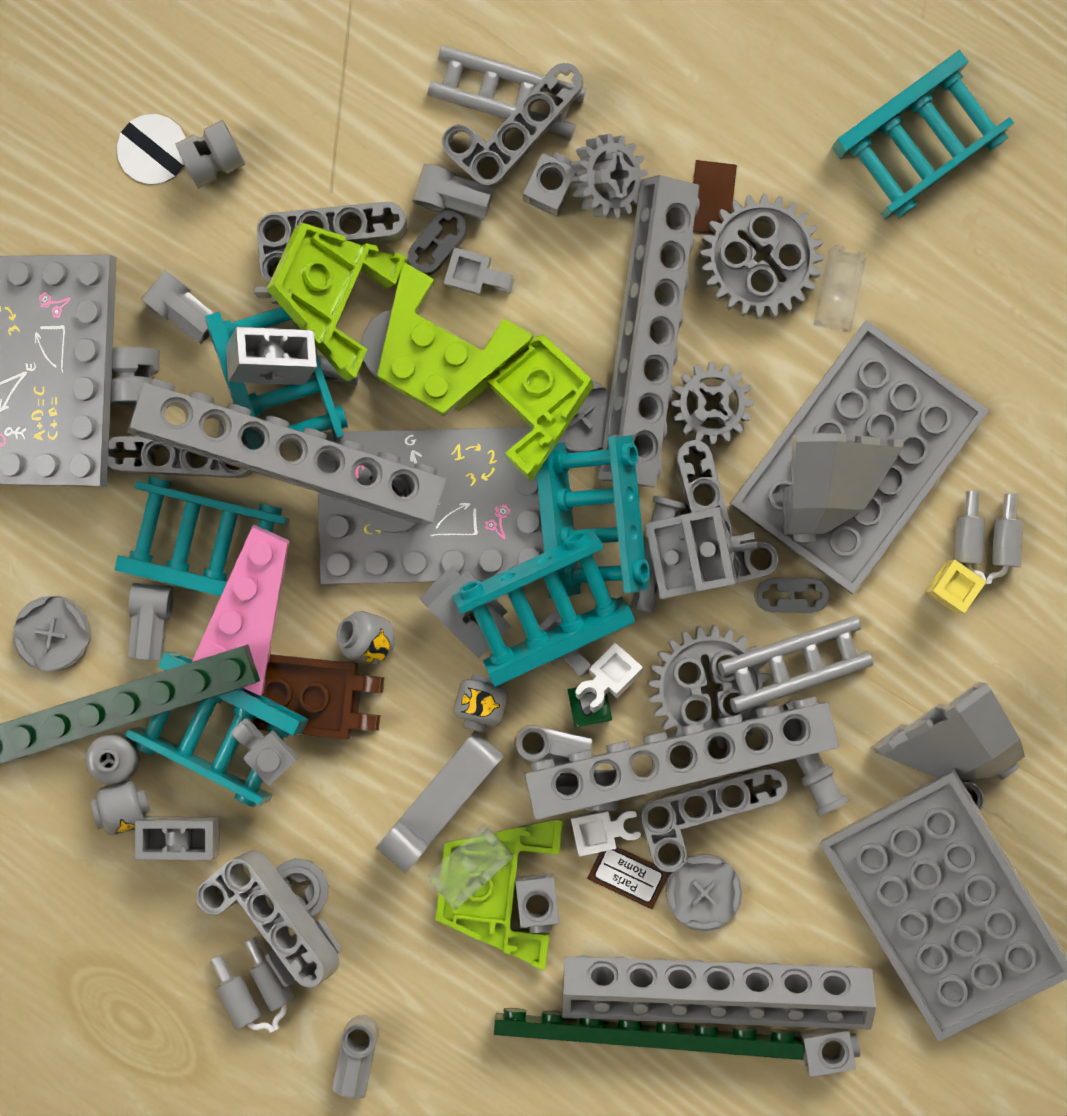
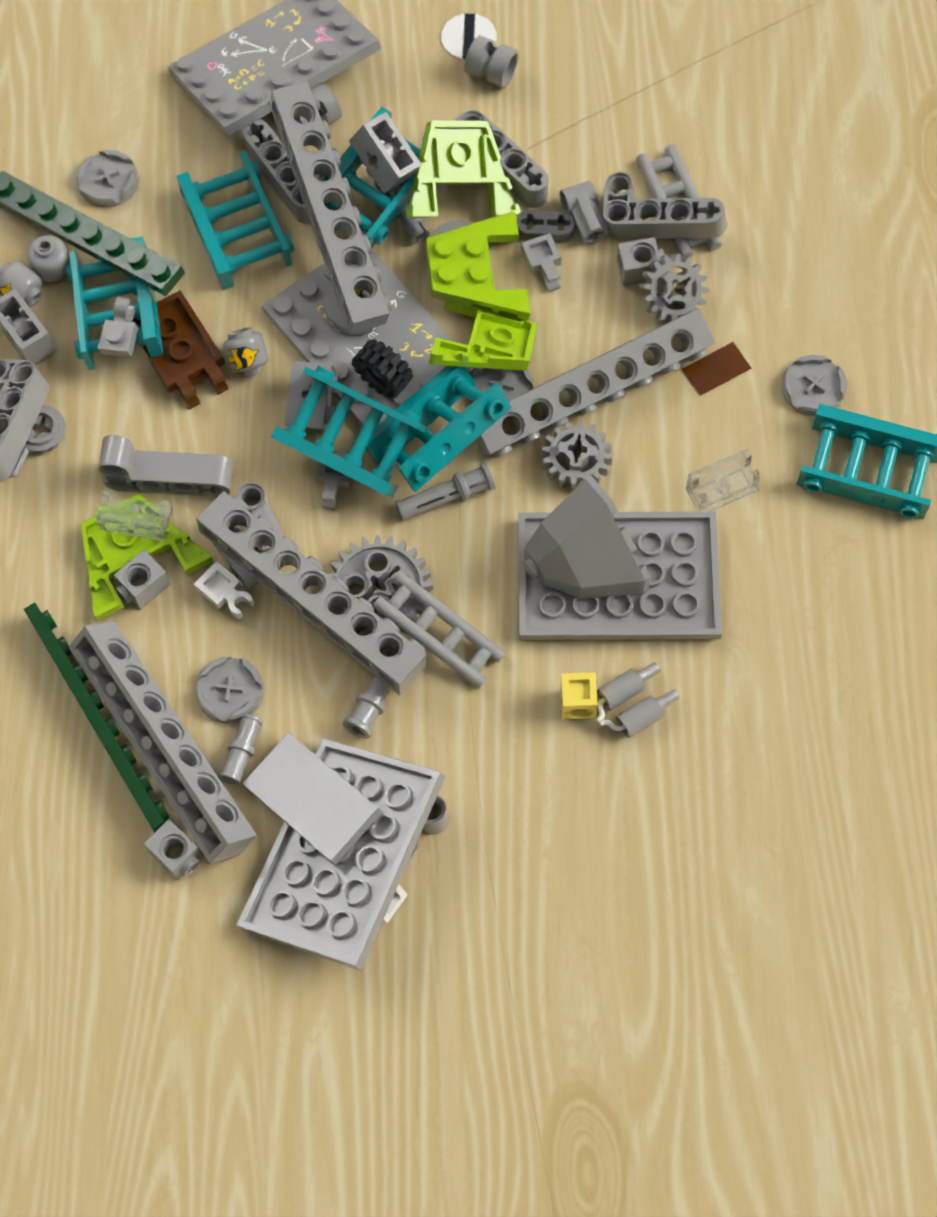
camera: 55 degrees right, 20 degrees down
(150, 609) = (165, 219): light grey piece -> none
(175, 302) = (380, 95): light grey piece -> none
(249, 603) = (213, 261): bright pink wing -> none
(480, 703) = (255, 450): light grey head -> none
(495, 525) = (382, 368): none -> black tyre
(581, 709) = (306, 524): dark green slope -> none
(611, 674) = (339, 519): white plate -> none
(628, 876) = (204, 633): sticker -> none
(694, 552) = (464, 500): light grey plate -> none
(714, 809) = (294, 649): light grey beam -> none
(742, 565) = (504, 508): light grey beam -> none
(774, 923) = (241, 749): none -> light grey pin
(787, 233) = (672, 413): light grey gear -> none
(792, 585) = (481, 605): dark grey beam -> none
(801, 121) = (813, 381): none -> light grey tile
(876, 897) = (312, 798): none -> tile
(963, 736) = (474, 769): light grey brick -> none

